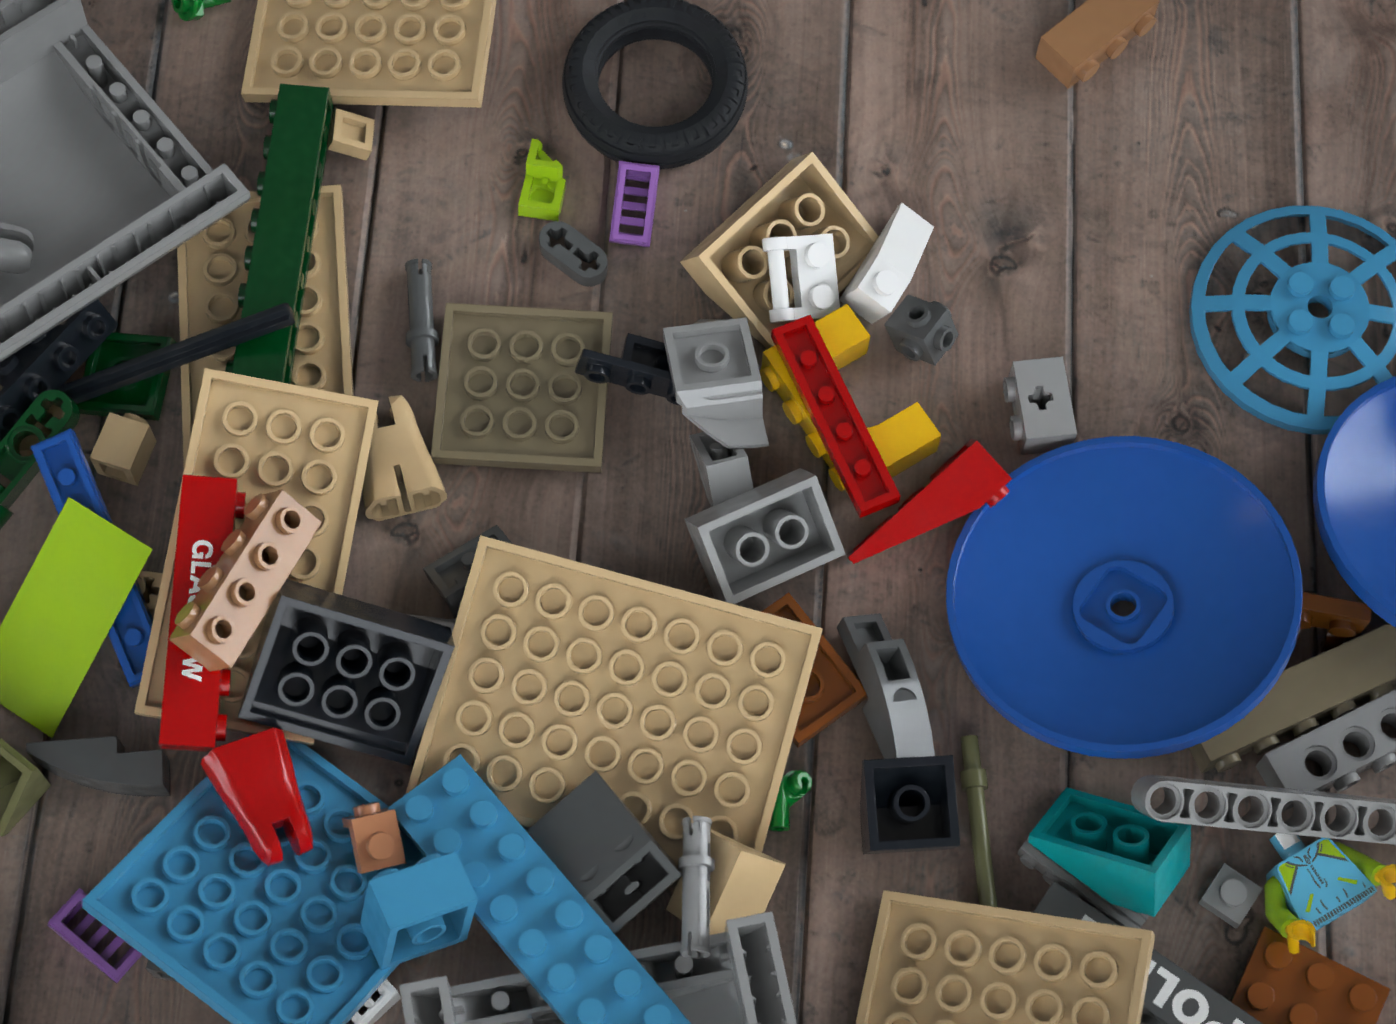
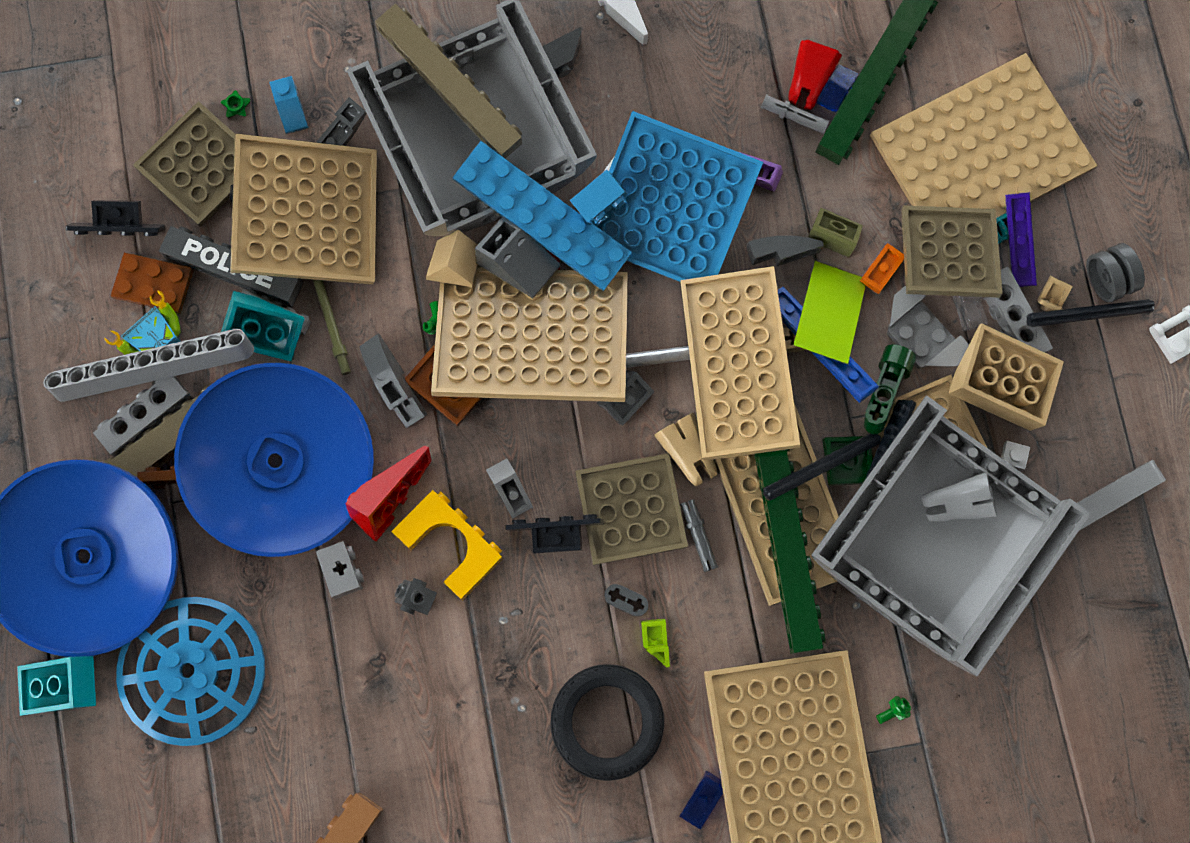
camera: 165 degrees right, 10 degrees up
(123, 448) = (834, 418): tan brick -> none
(191, 691) = (757, 317): red brick -> none
(244, 580) = (736, 328): medium nougat brick -> none
(261, 792) = (695, 242): red piece -> none
(346, 672) = (673, 315): black slope -> none
(351, 134) = (775, 641): tan plate -> none
(374, 837) = (635, 239): nougat bracket -> none
(641, 173) = (596, 620): medium lavender slope -> none
(696, 871) = (468, 256): light grey pin -> none
(718, 380) = (524, 534): light grey piece -> none
(765, 536) = (475, 446): light grey brick -> none
(792, 203) = (505, 629): tan slope -> none
(812, 276) = (483, 611): white plate -> none
(835, 416) = (452, 523): red plate -> none
(888, 265) = (442, 637): white slope -> none
(908, 805) = (368, 317): black slope -> none
(1230, 895) = (197, 324): light grey plate -> none

